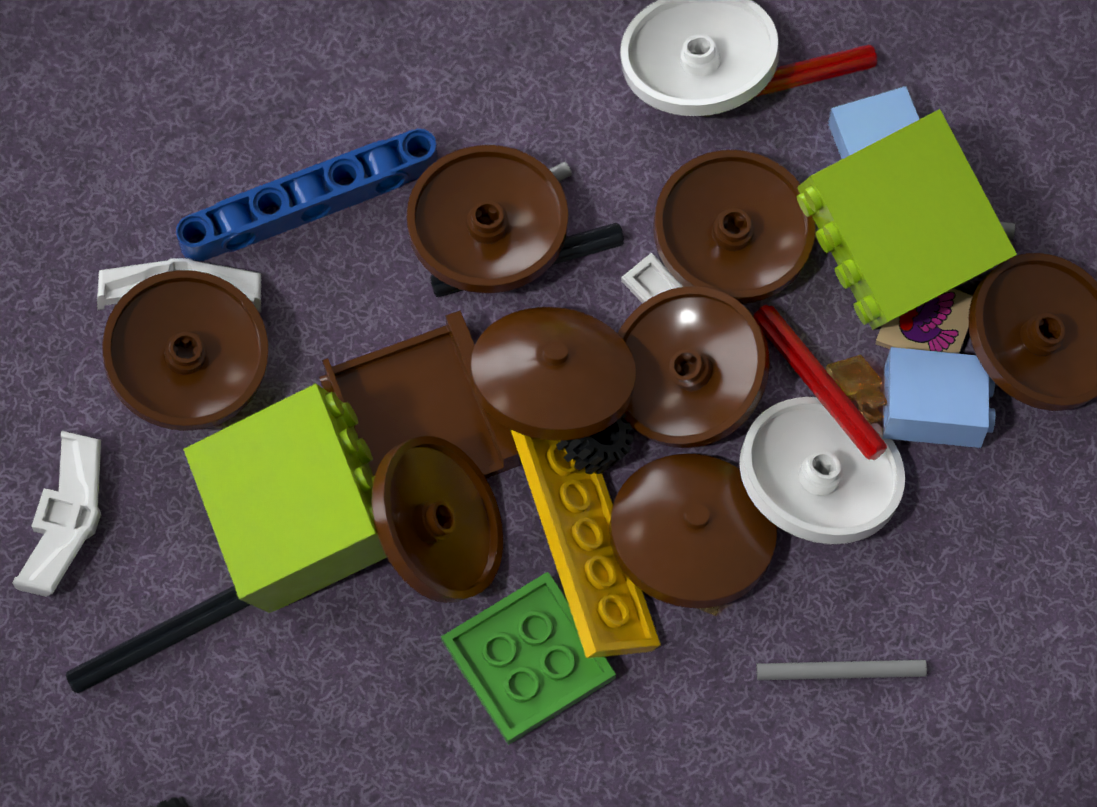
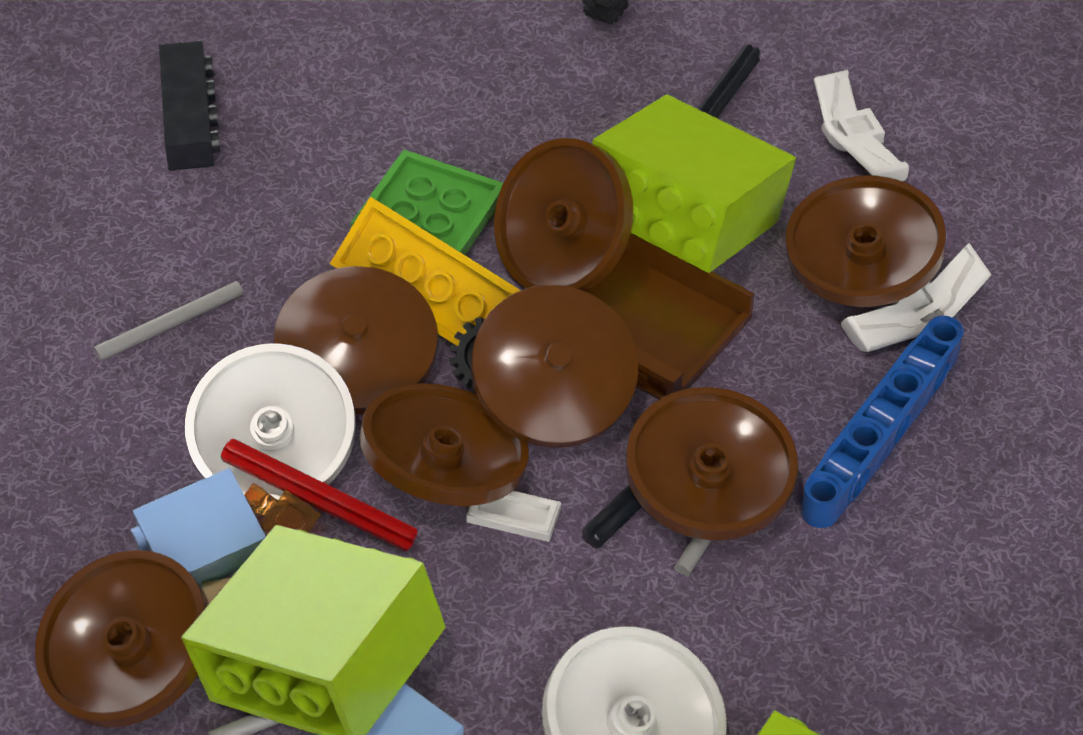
camera: 145 degrees right, 20 degrees down
(733, 225) = (496, 575): reddish brown dish -> none

